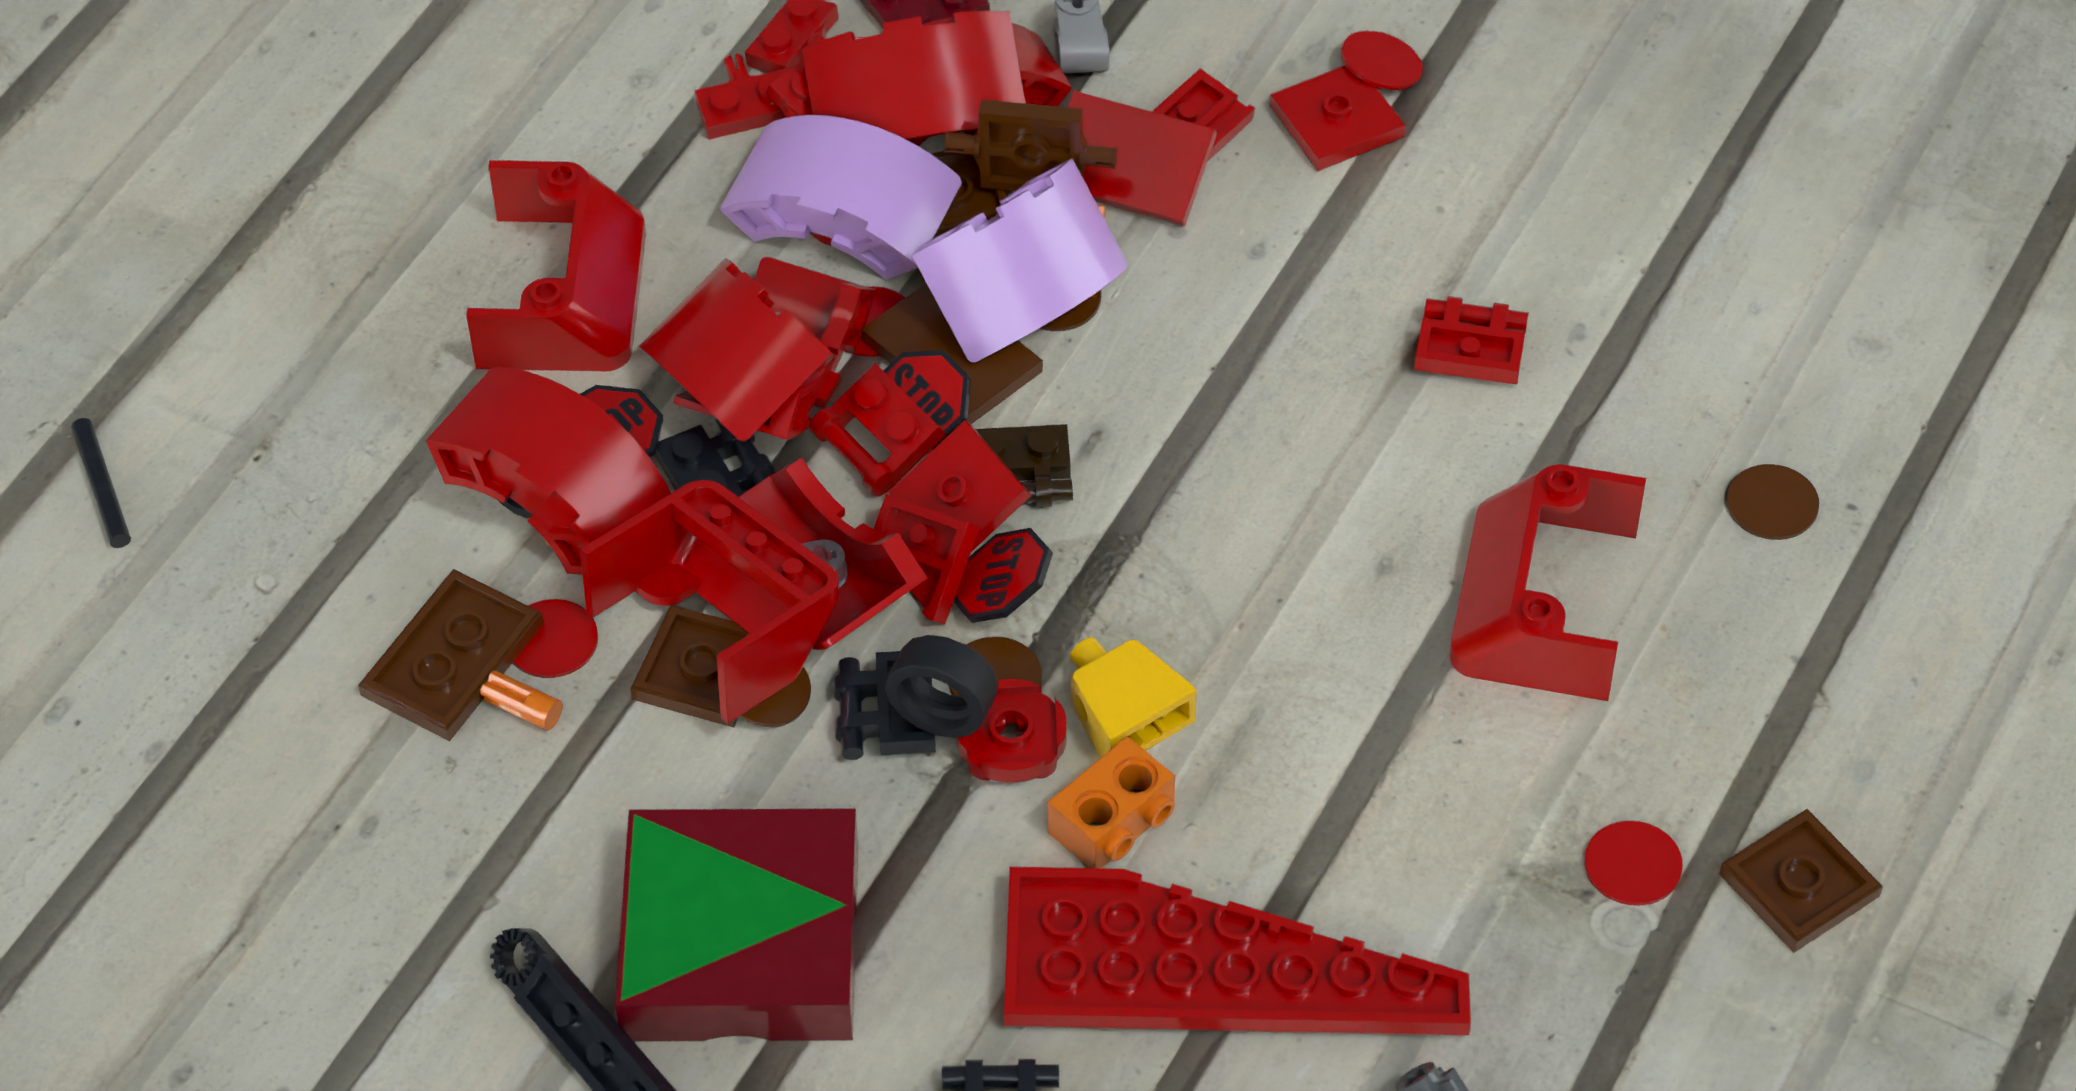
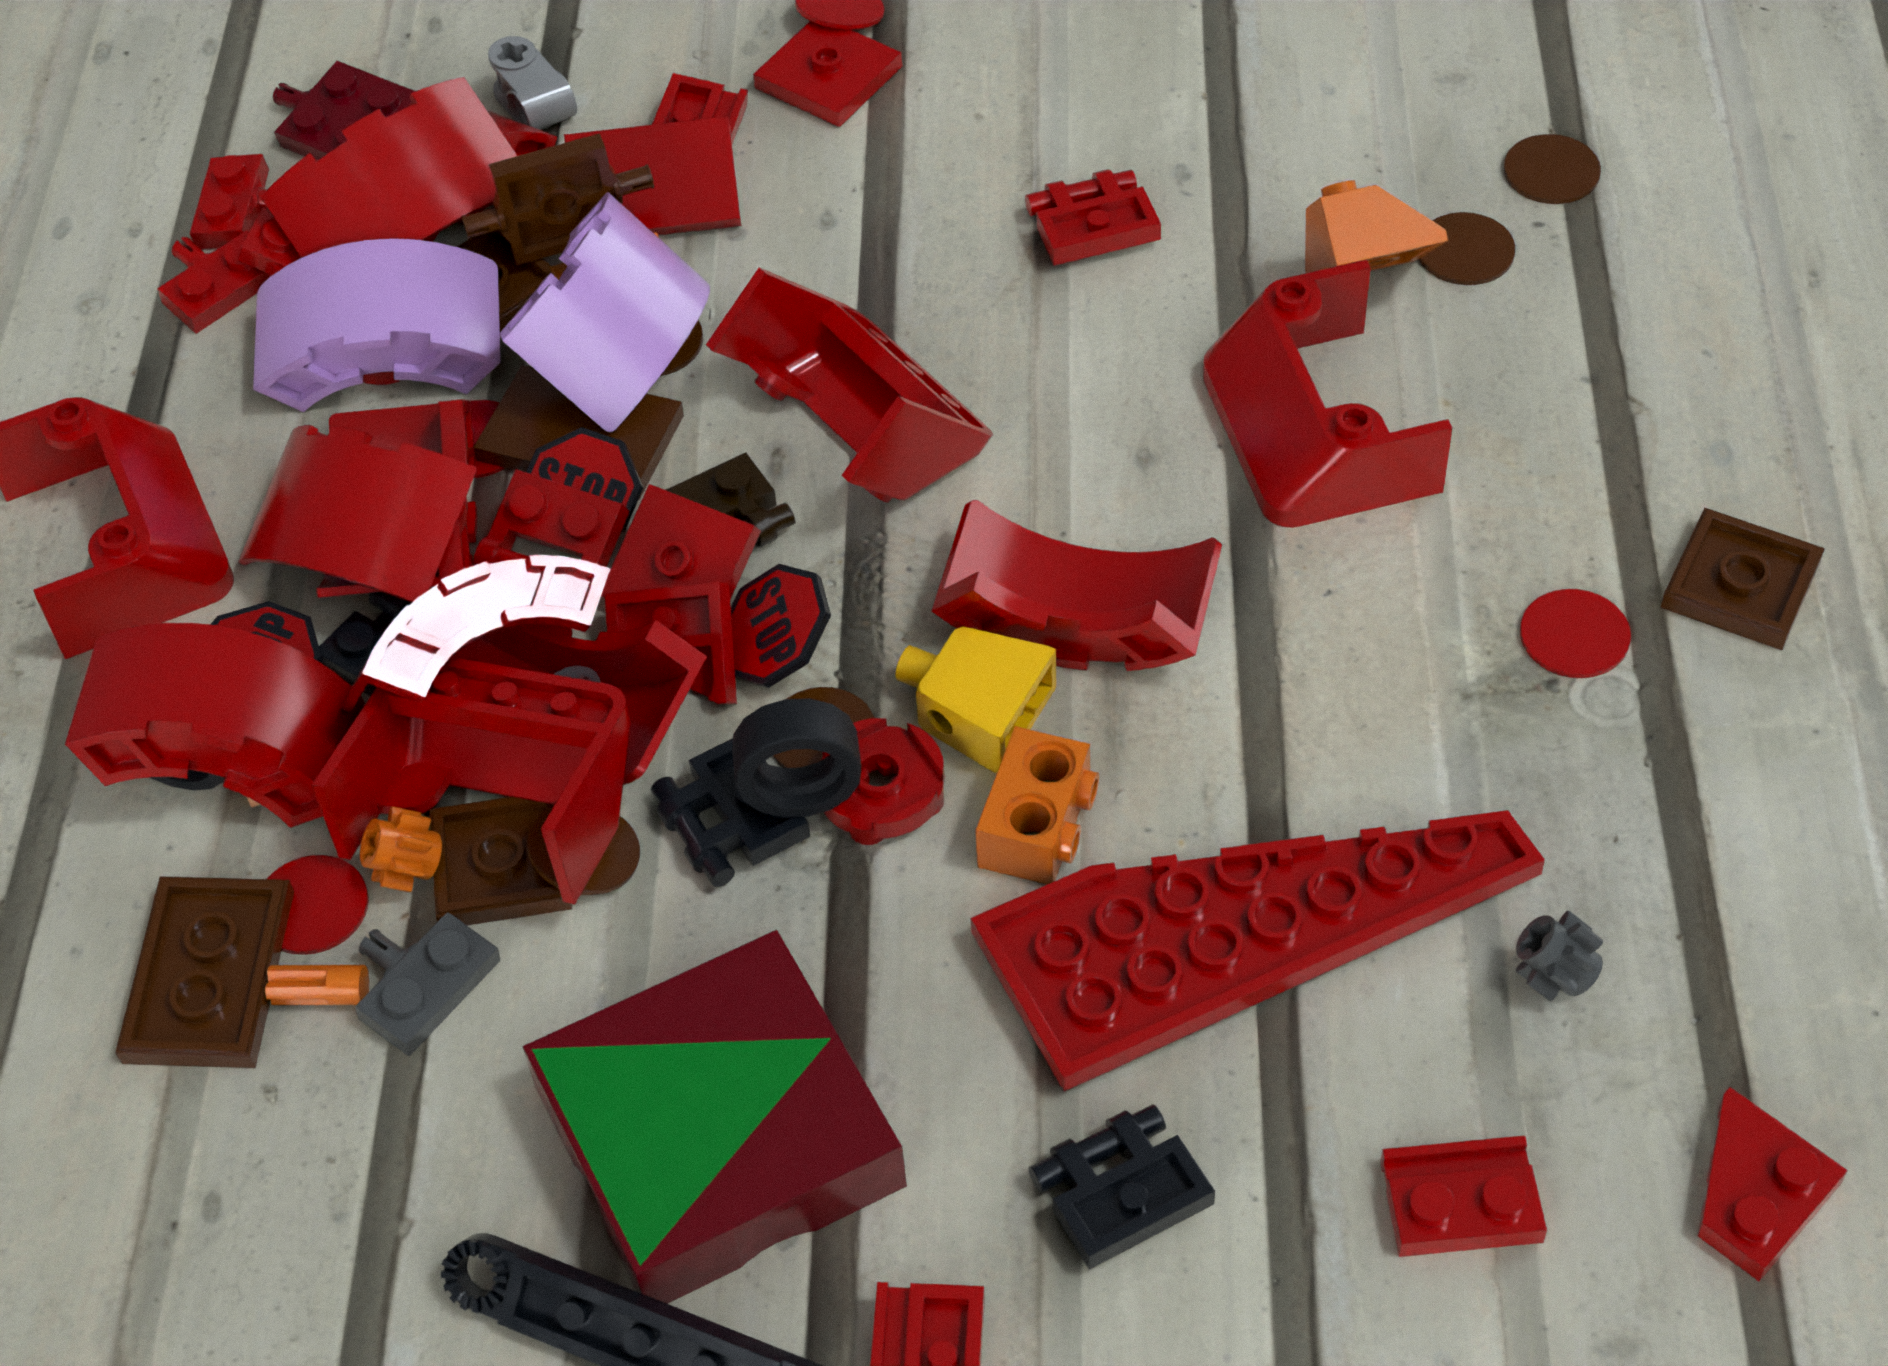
camera: 25 degrees left, 0 degrees up
(597, 731) = (423, 980): none -> dark grey plate
(630, 626) = (400, 849): none -> orange gear
(767, 462) = (472, 605): none -> panel
(1192, 402) = (855, 380): none -> red windscreen
(1245, 650) = (1076, 597): none -> red panel
(1667, 451) = (1368, 226): none -> orange slope
(1898, 462) = (1552, 169): none -> reddish brown piece

